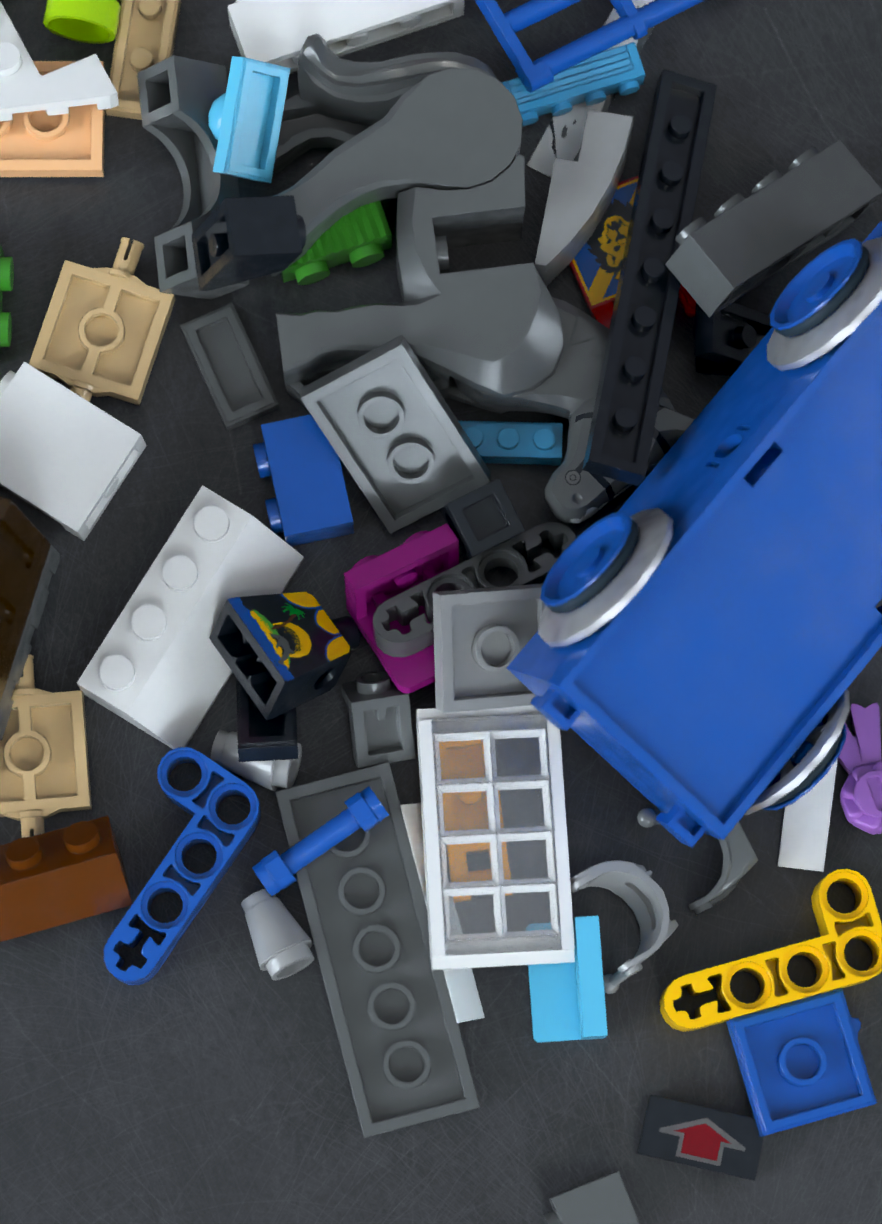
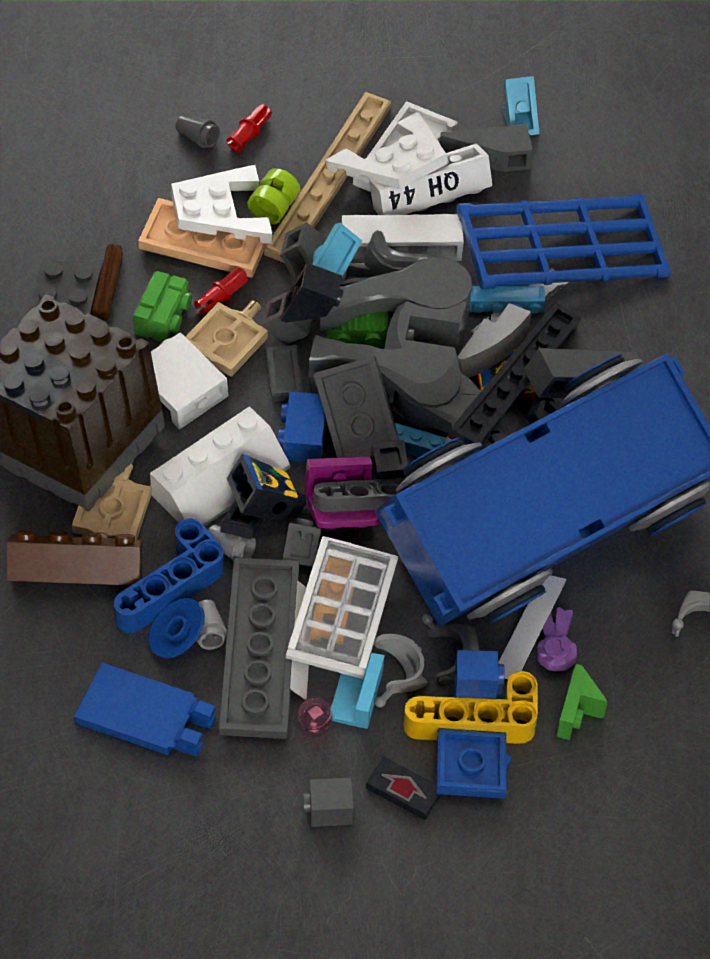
camera: 20 degrees right, 25 degrees down
(60, 229) = (221, 290): none -> red axle
(208, 967) = (176, 628): none -> blue dish
(218, 1136) = (144, 711): none -> blue tile
(278, 870) = (276, 574): blue bar -> none
(477, 640) = (357, 516): light grey plate -> none
(511, 1049) = (315, 715): none -> clear pink tile
(770, 916) = (478, 675): none -> blue brick

